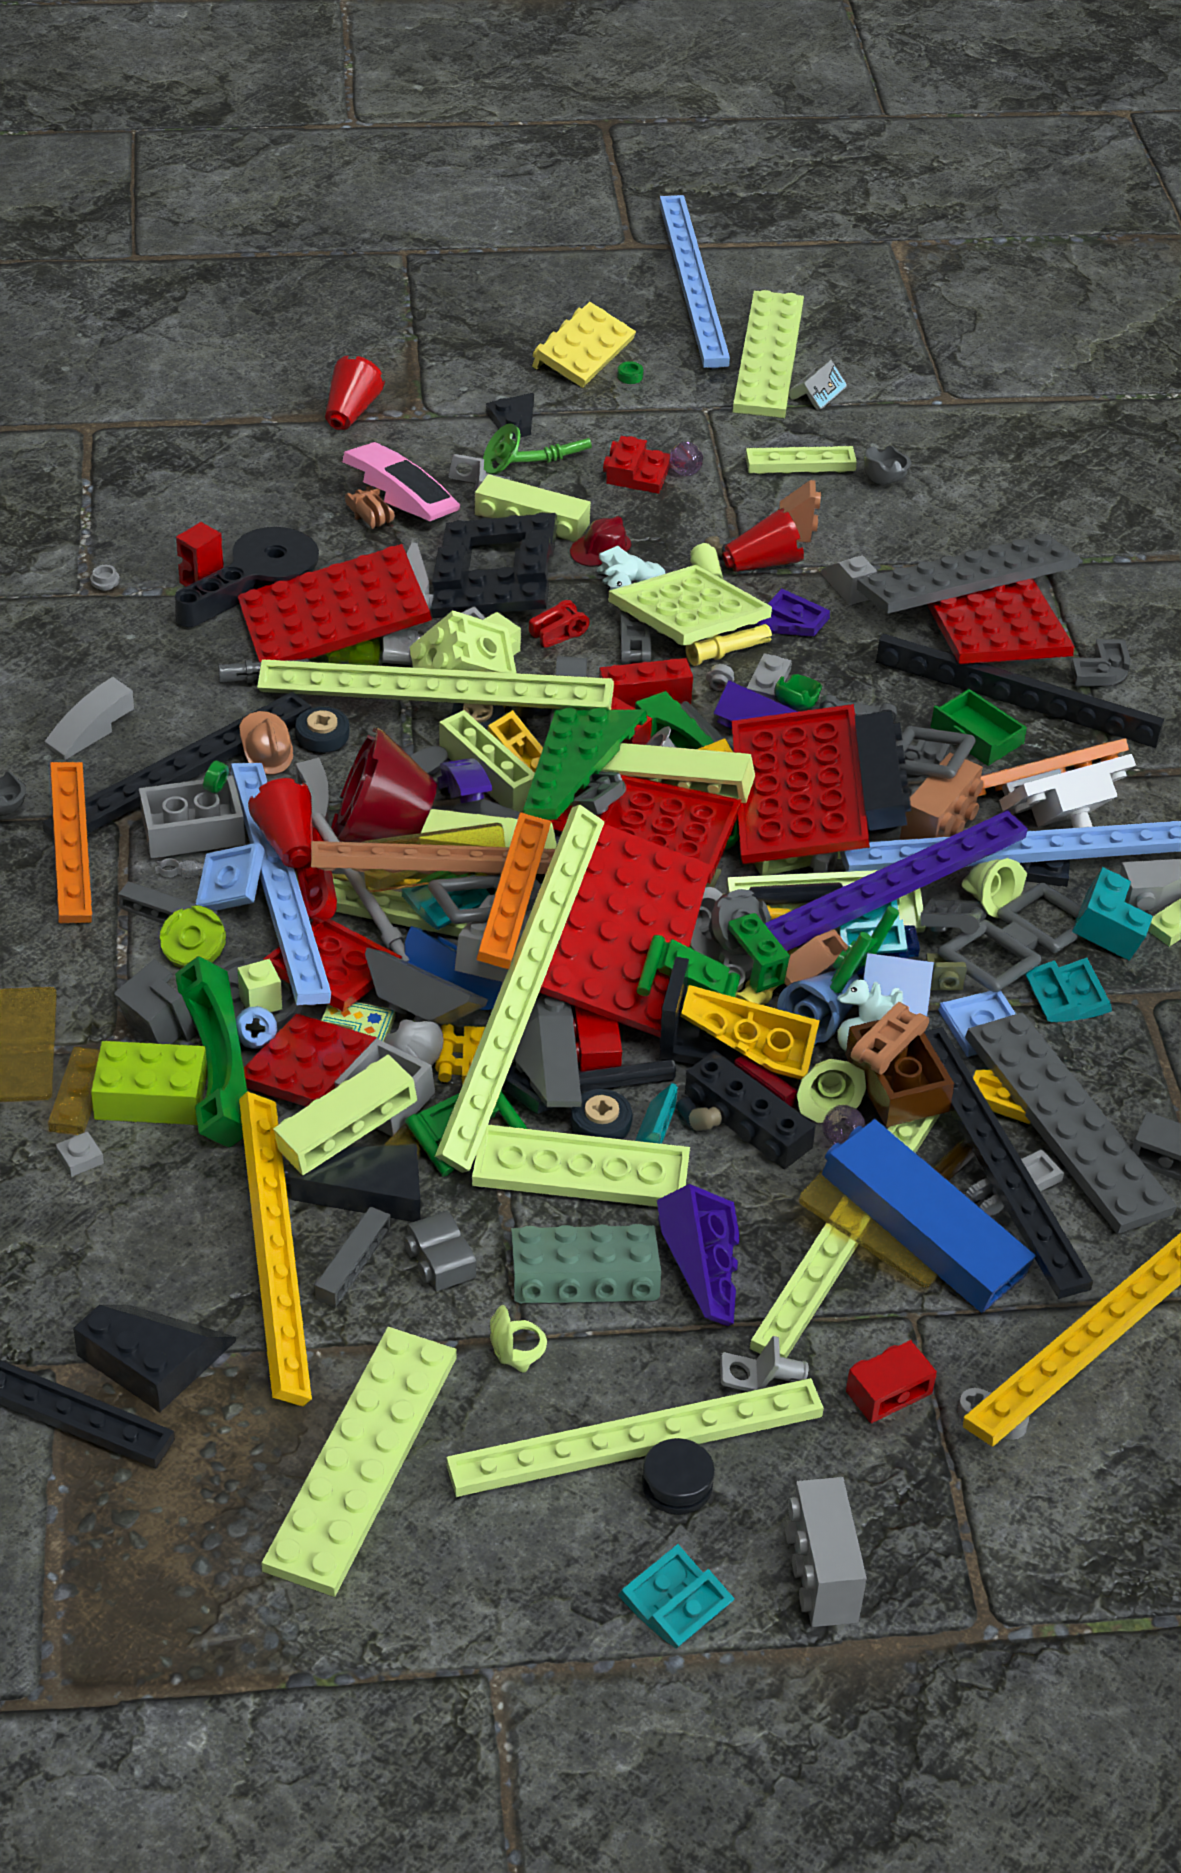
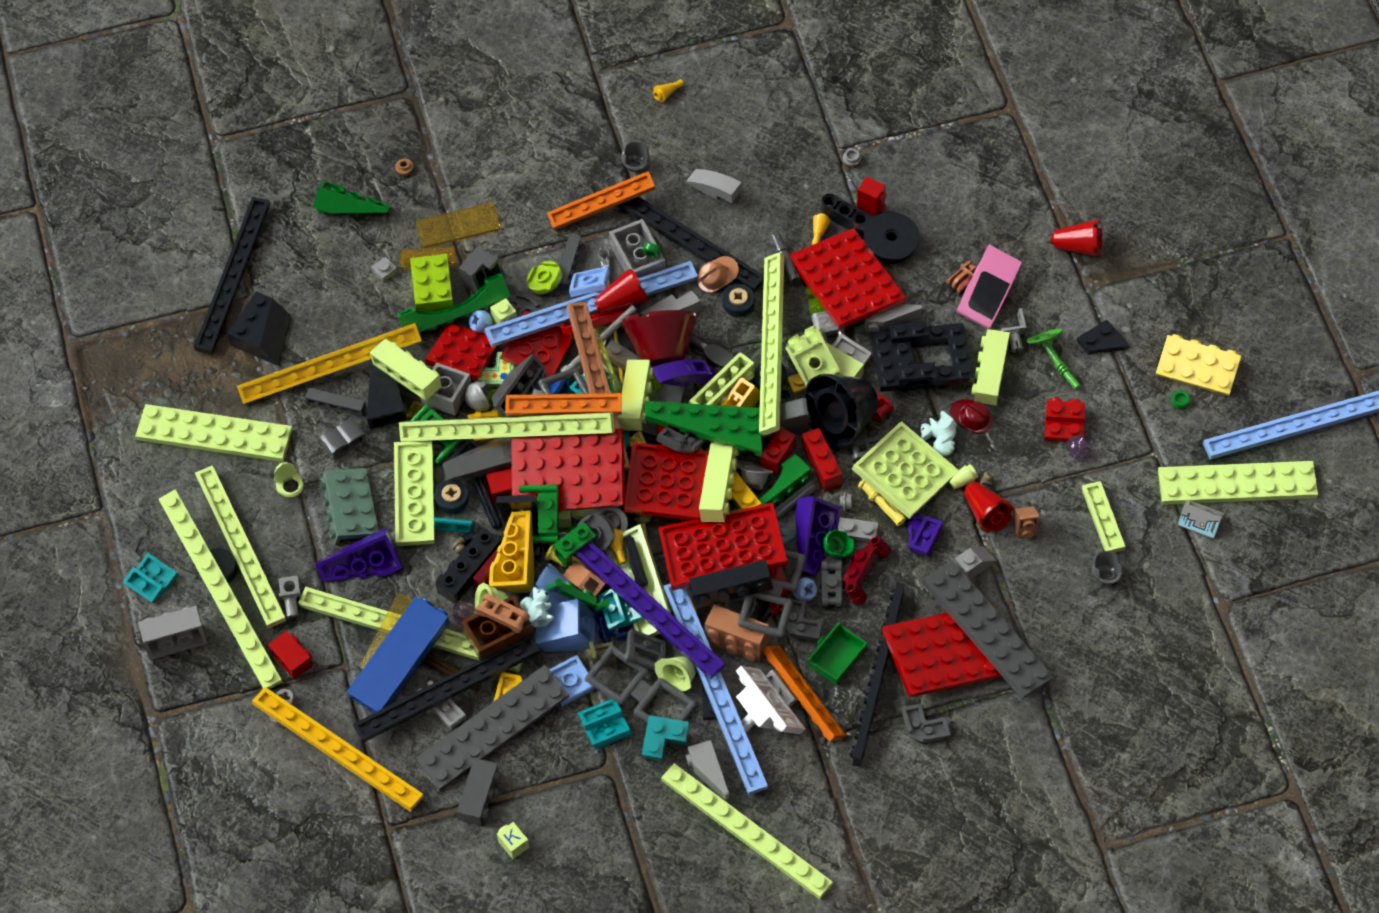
camera: 85 degrees right, 15 degrees up
(217, 625) = (820, 224): none -> yellow cone
(606, 630) = (840, 406): none -> black cone
(732, 1467) = (220, 590): none -> yellowish green plate
(842, 682) = (860, 566): none -> dark red plate

